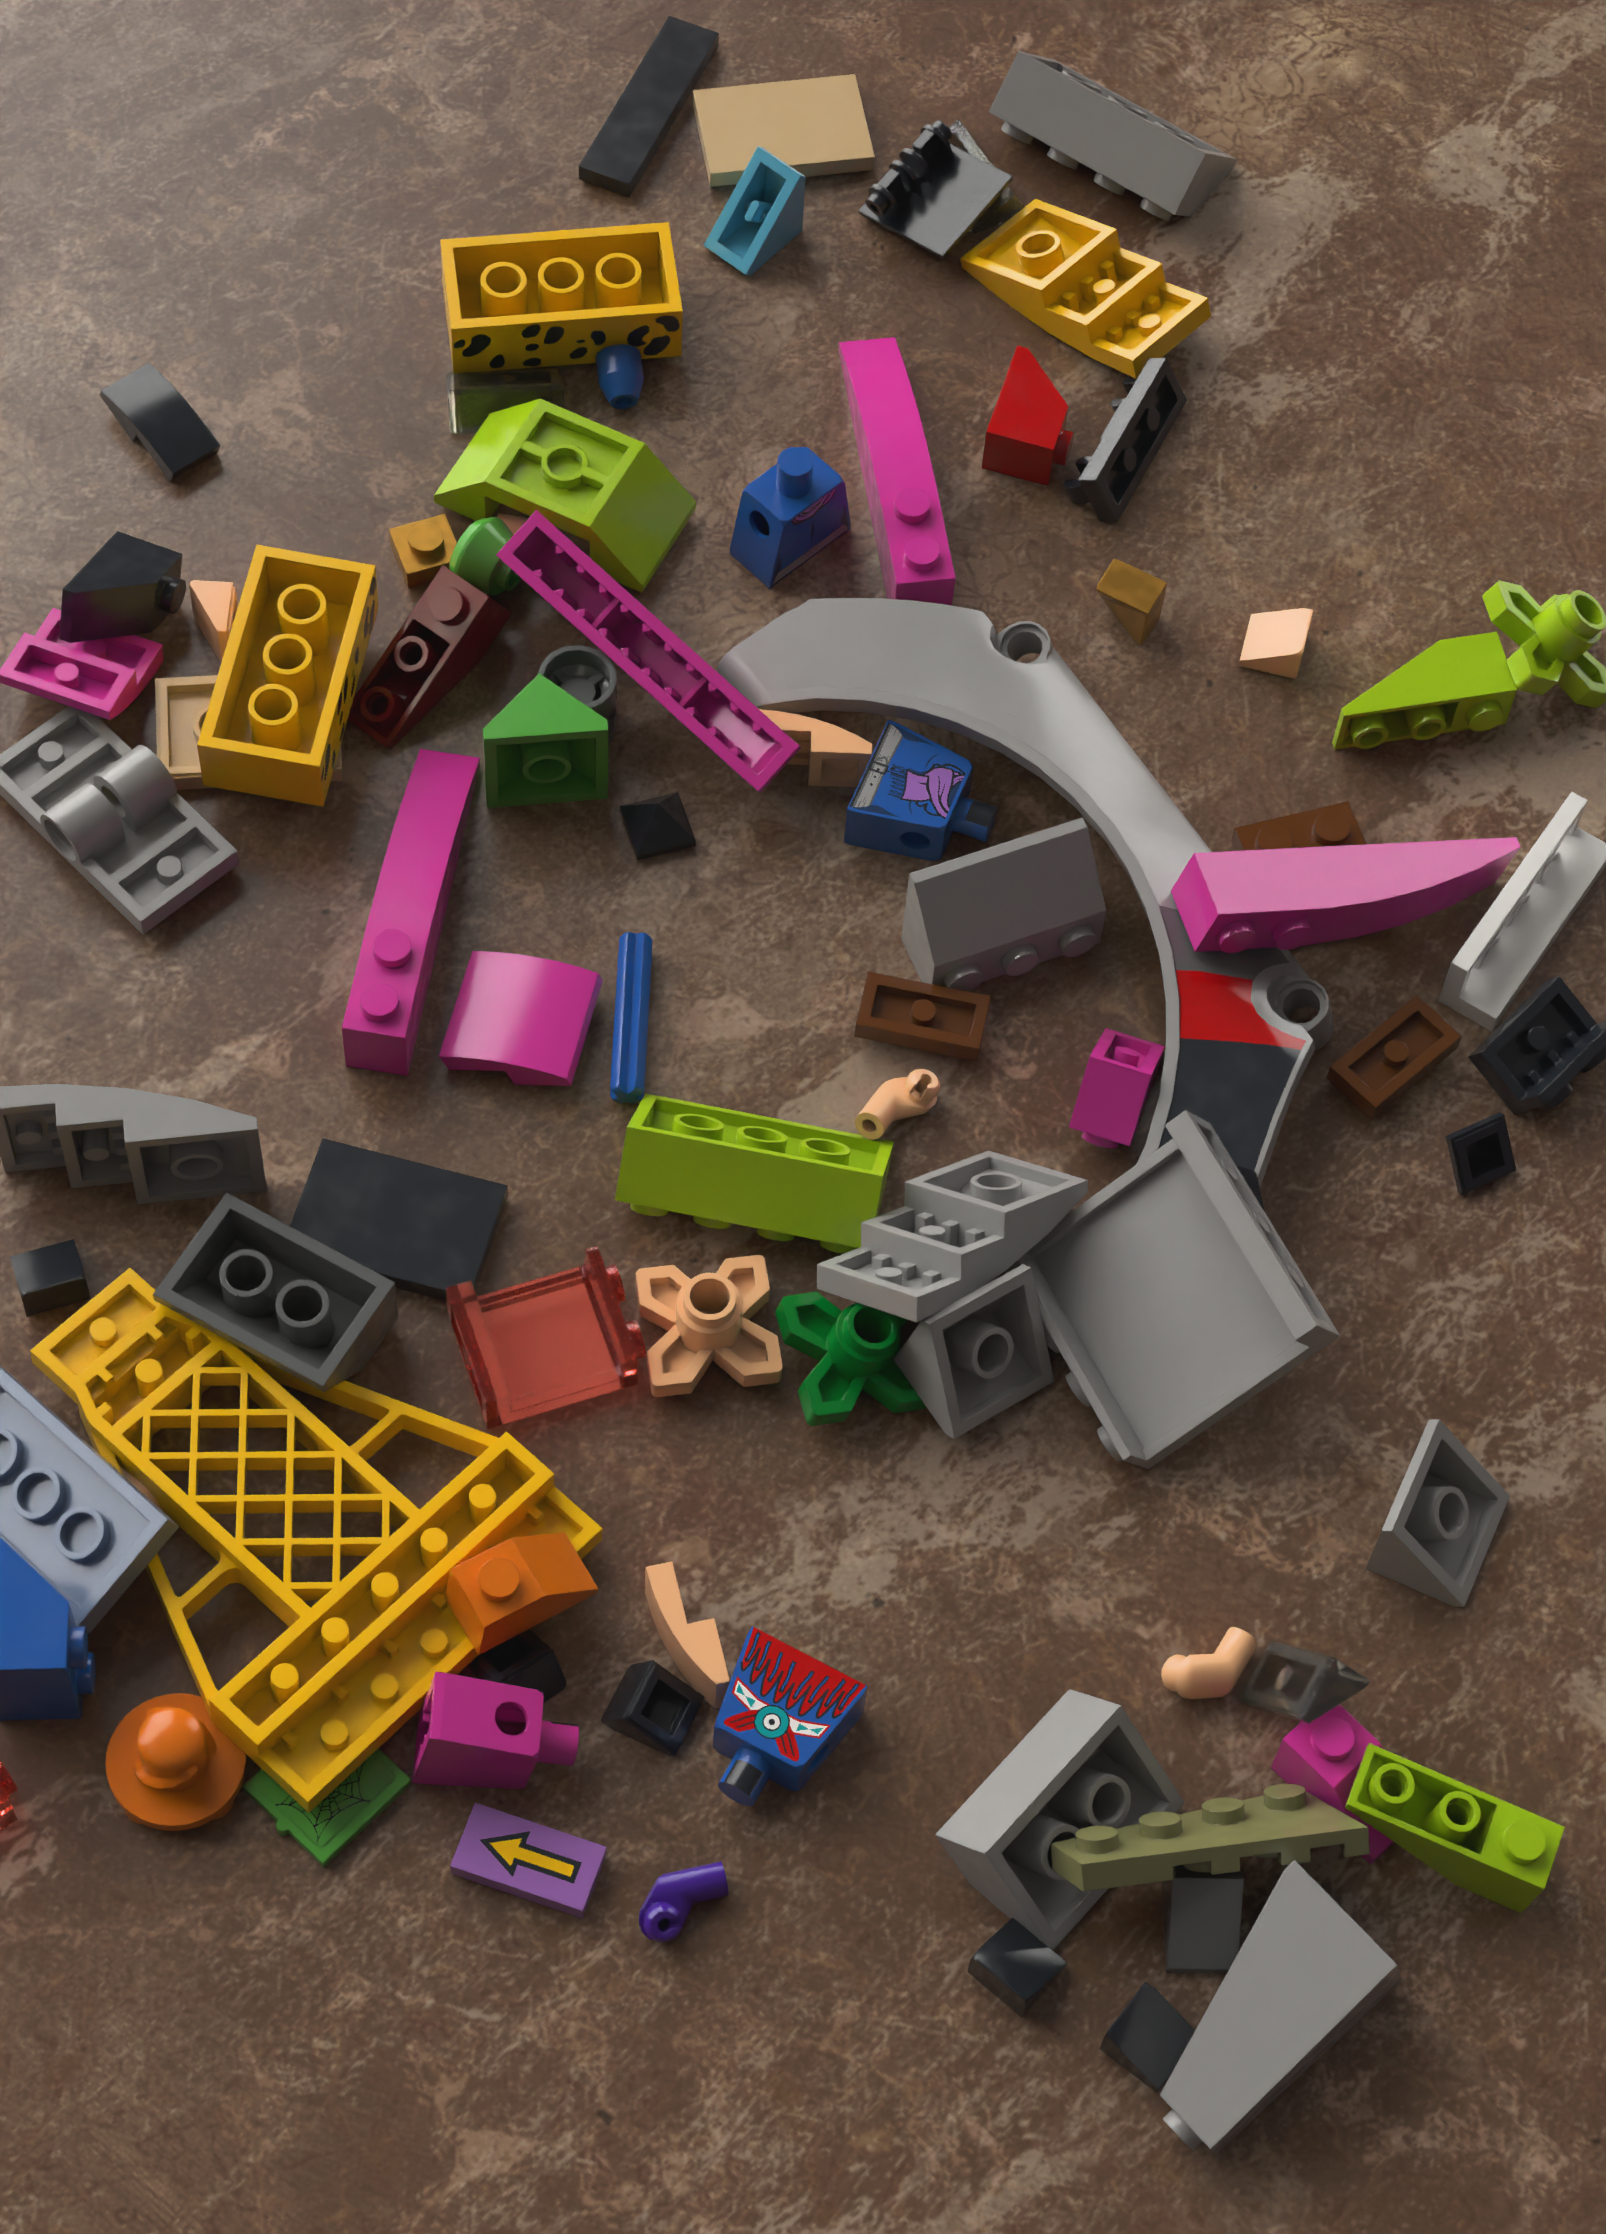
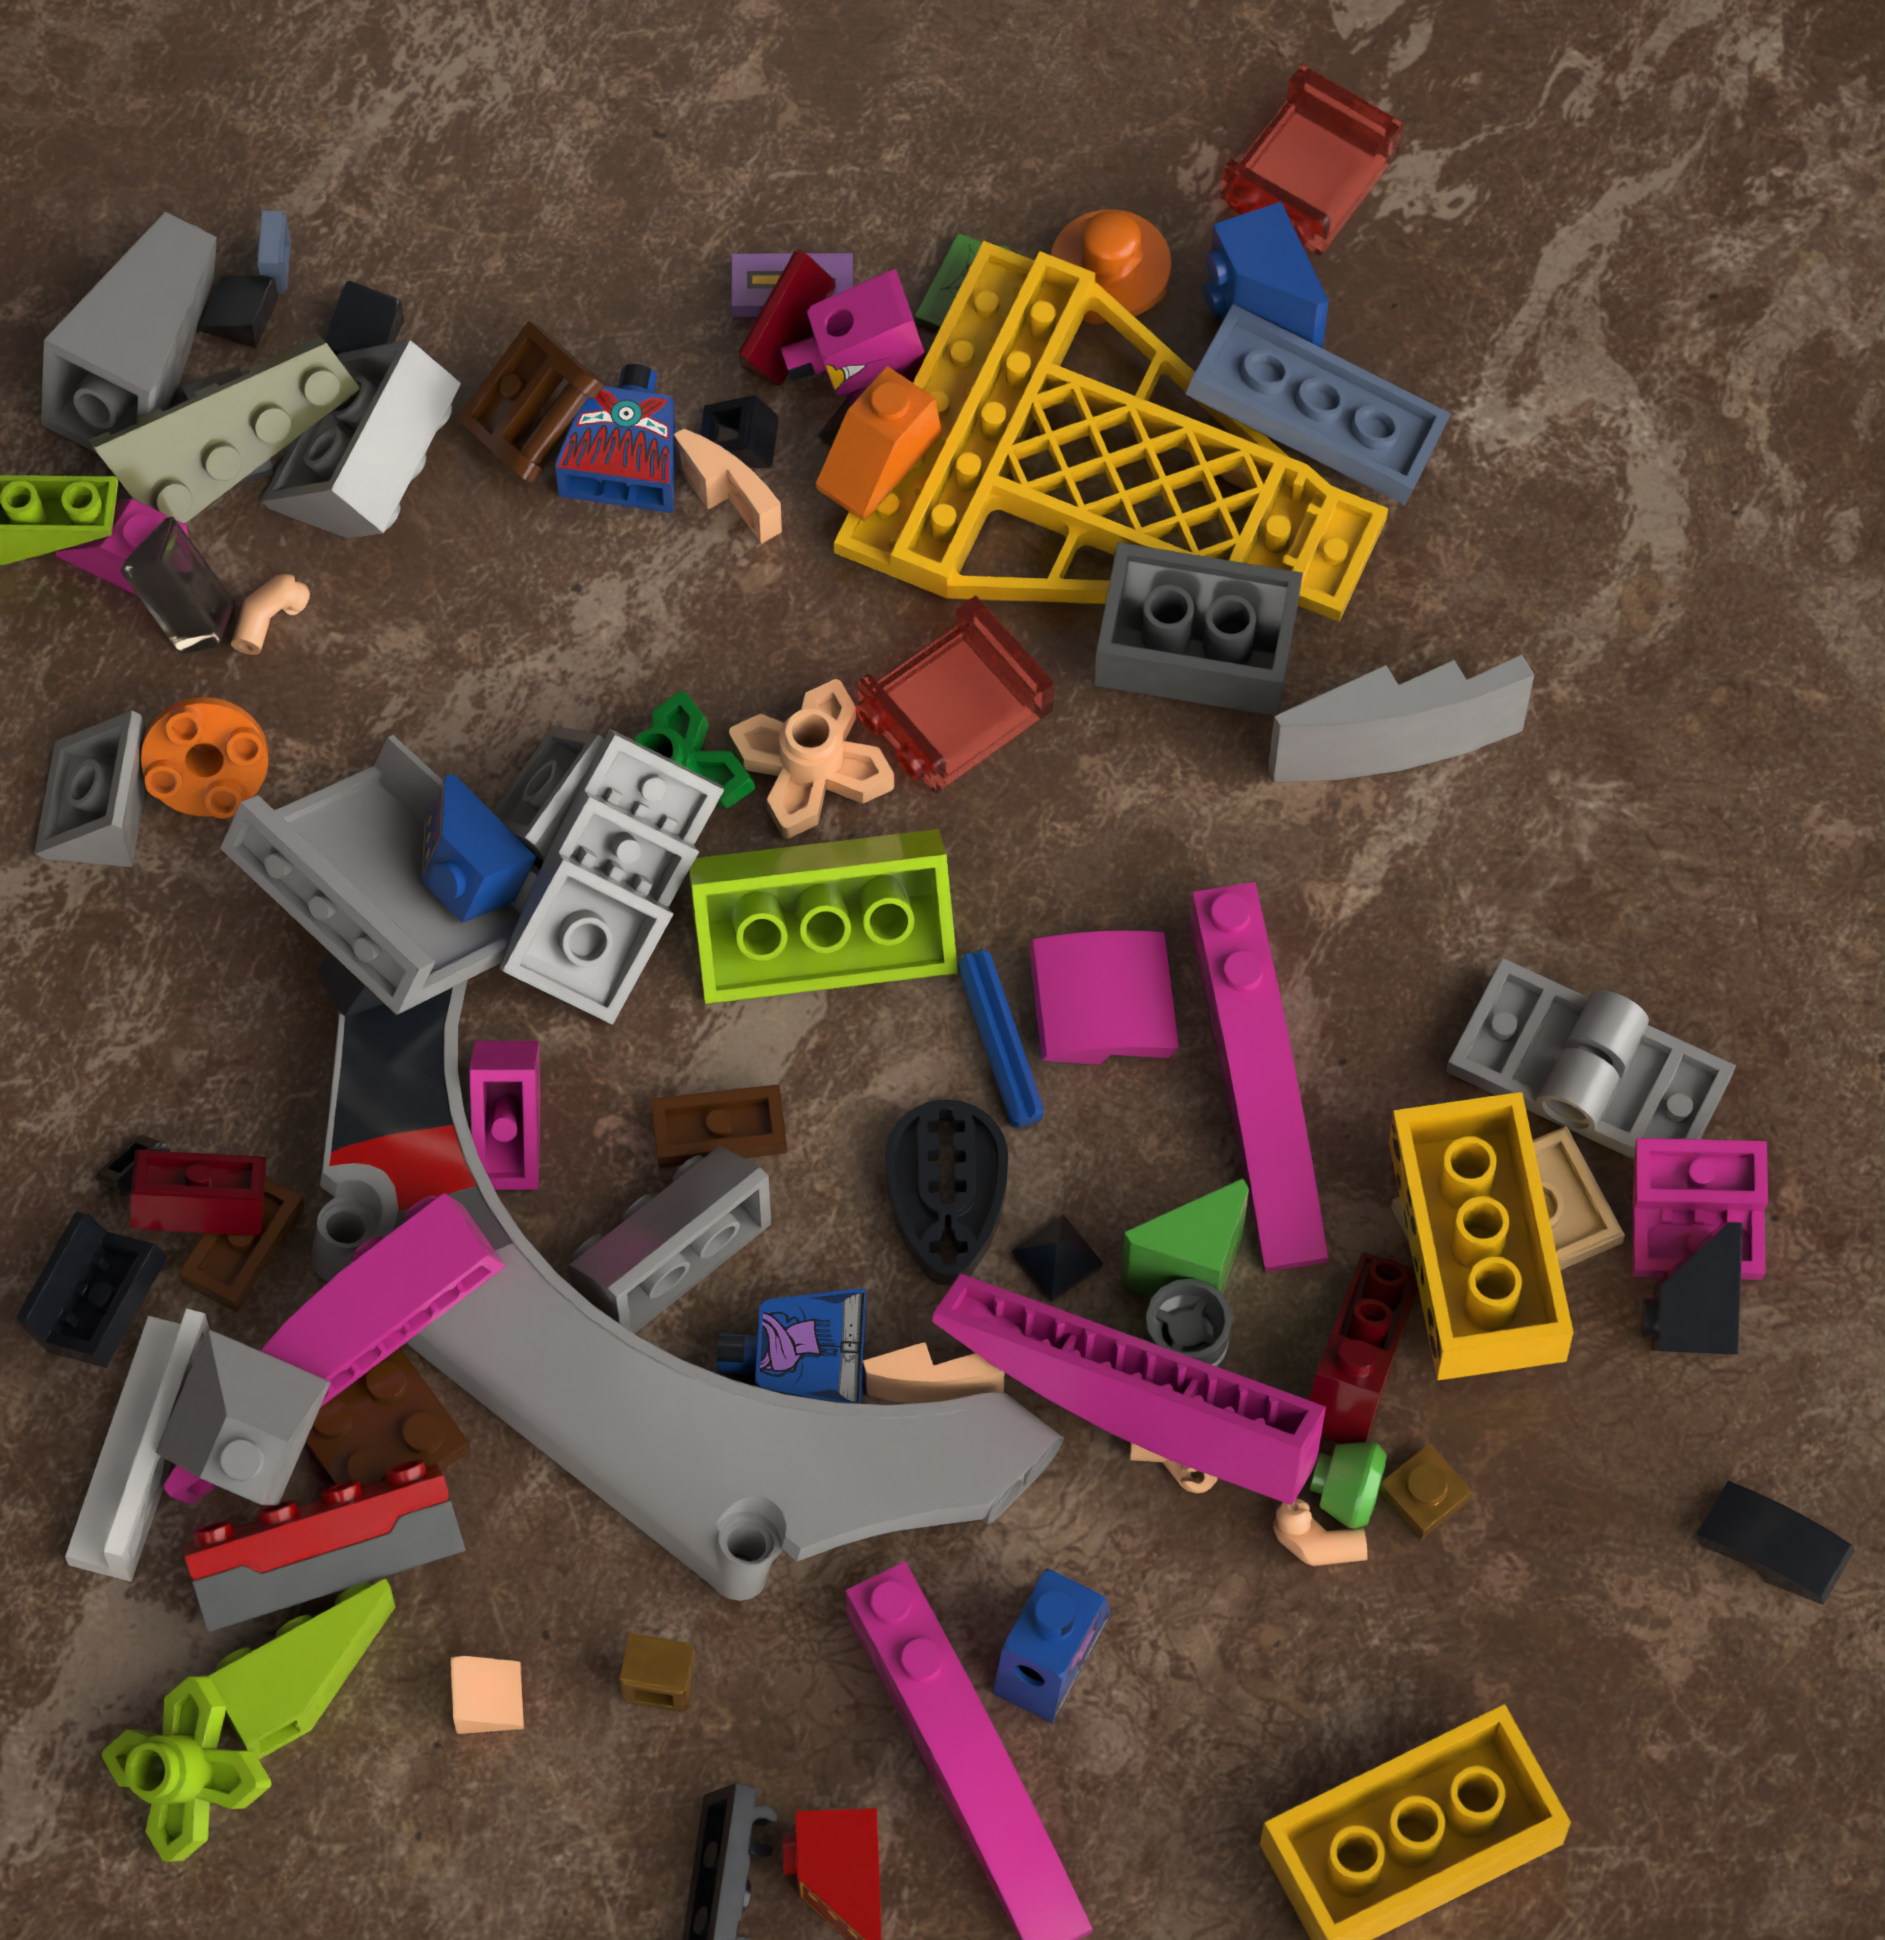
camera: 165 degrees right, 5 degrees up
(50, 1277) = (1417, 617): black slope -> none
(214, 611) = (1595, 1315): light nougat slope -> none
(400, 1216) = (1135, 770): black tile -> none
(478, 394) = (1423, 1711): clear smoke slope -> none
(559, 1801) = (785, 317): none -> dark red slope
(579, 480) = (1307, 1585): lime slope -> none
(620, 375) = (1308, 1774): blue hose -> none
(673, 1897) = (663, 290): dark purple arm -> none
(759, 922) = (914, 1180): none -> black piece
(875, 1800) = (517, 393): none -> reddish brown plate
(896, 1101) = (717, 1037): light nougat arm -> none
(1089, 1298) = (470, 854): none -> blue slope
(1093, 2081) = (274, 248): none -> sand blue tile
(1318, 1512) = (204, 757): none -> orange plate
(1389, 769) = (322, 1545): none -> piece
(1428, 1085) = (197, 1192): none -> dark red slope
(1447, 827) = (242, 1419): none -> light grey slope

